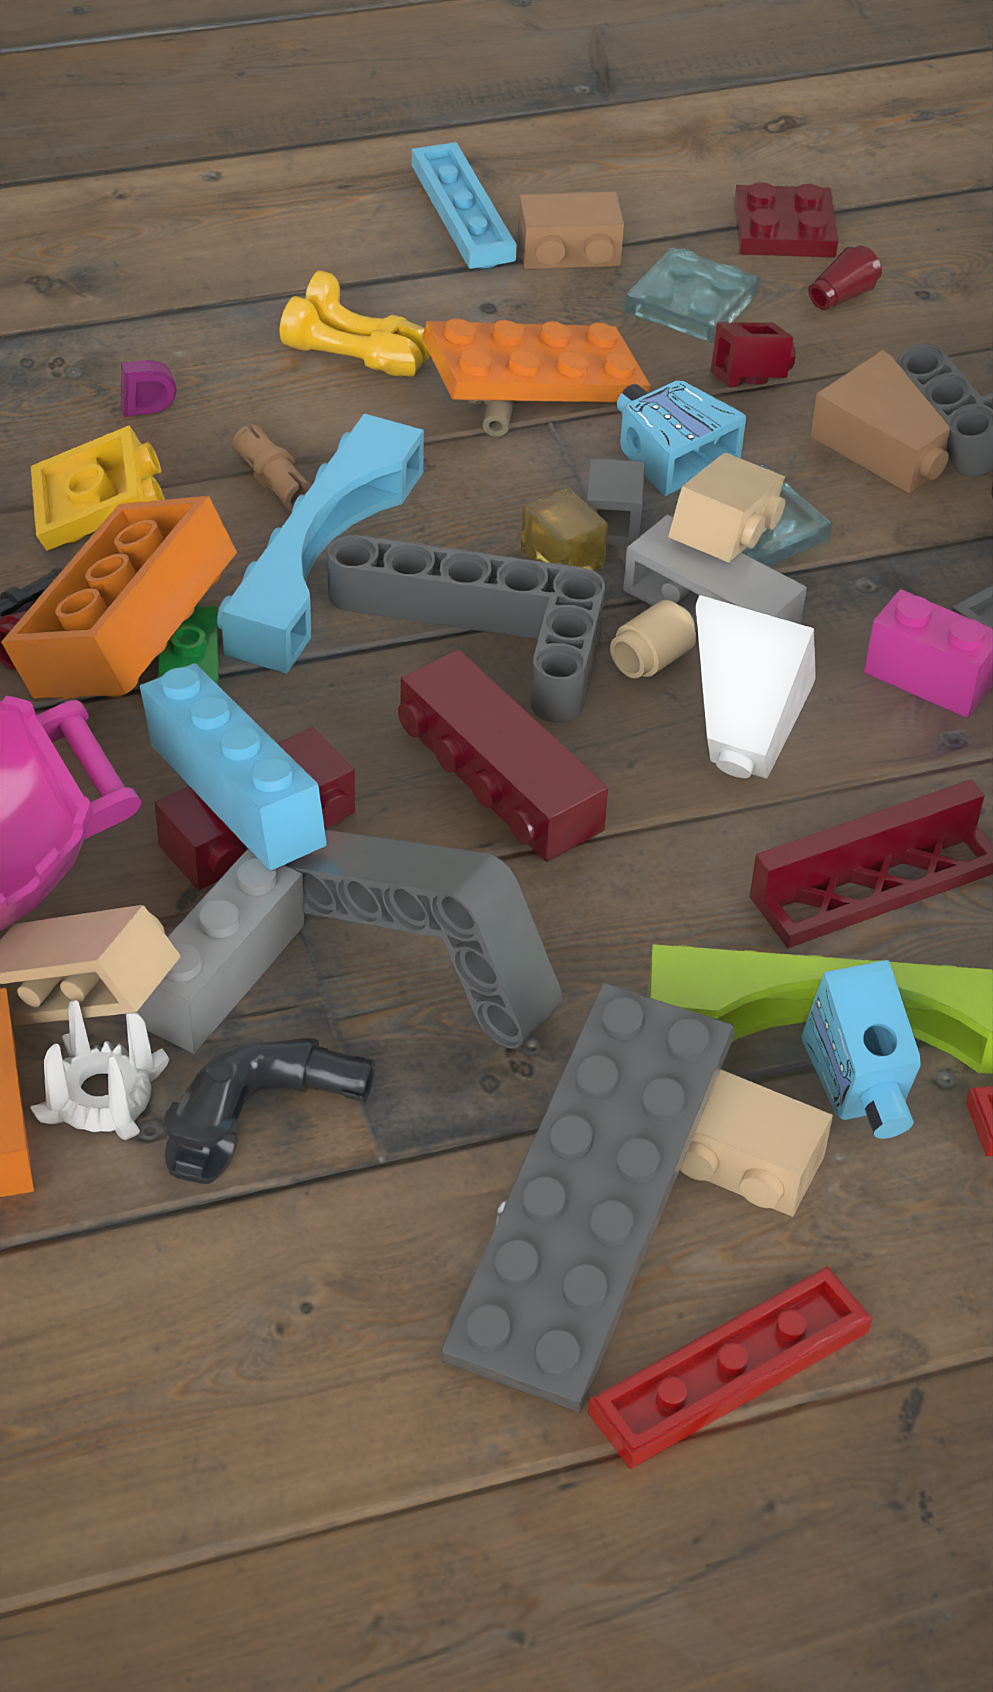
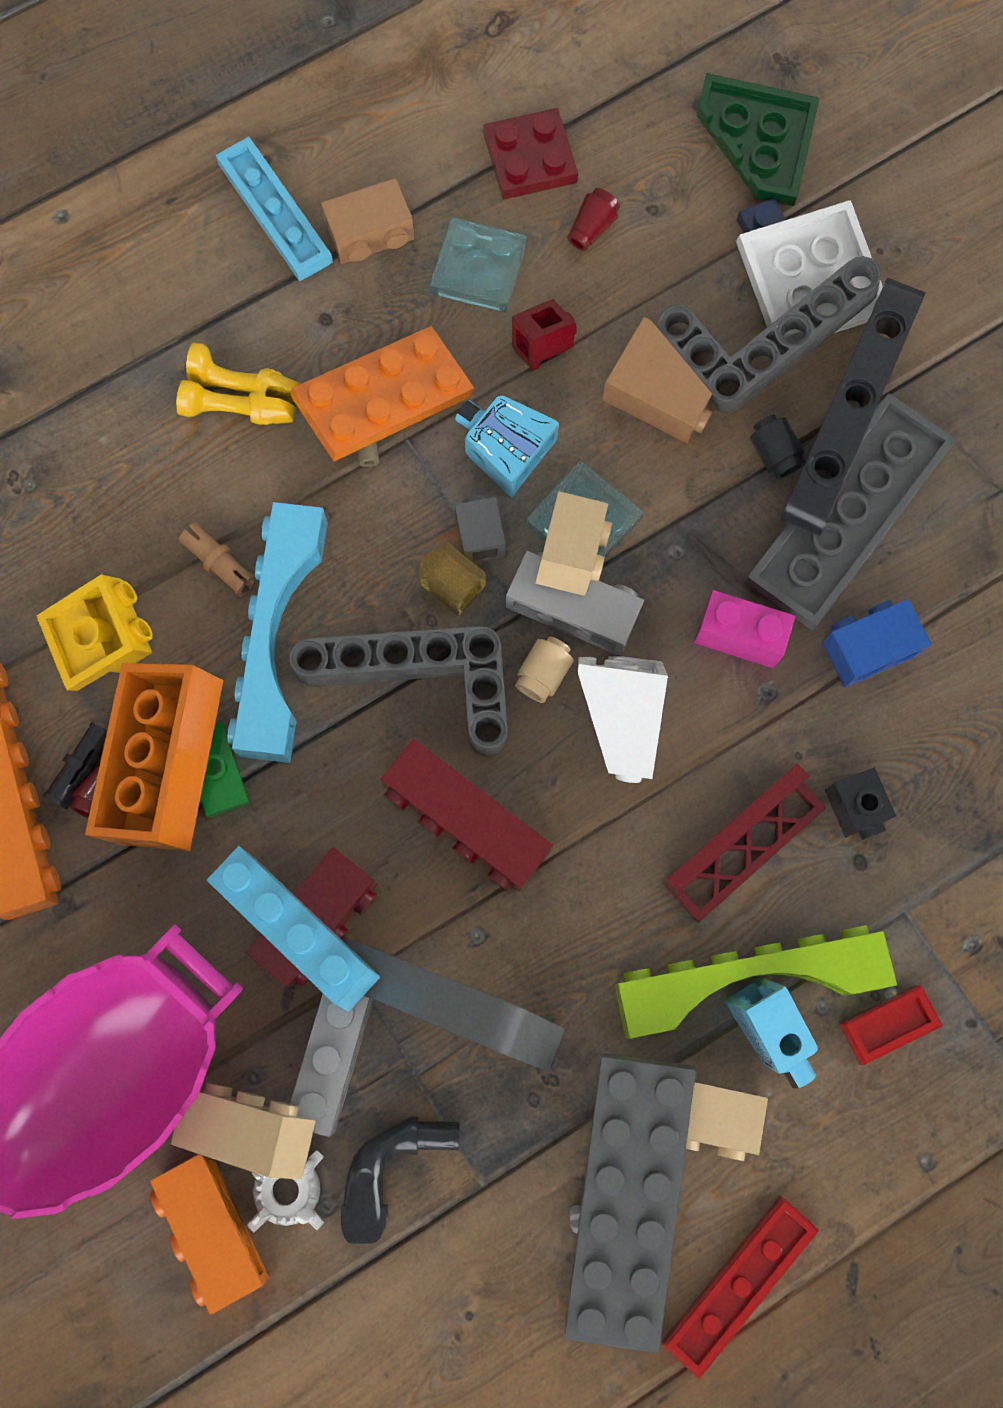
camera: 15 degrees left, 30 degrees up
(146, 387) = (95, 501): magenta tile -> none

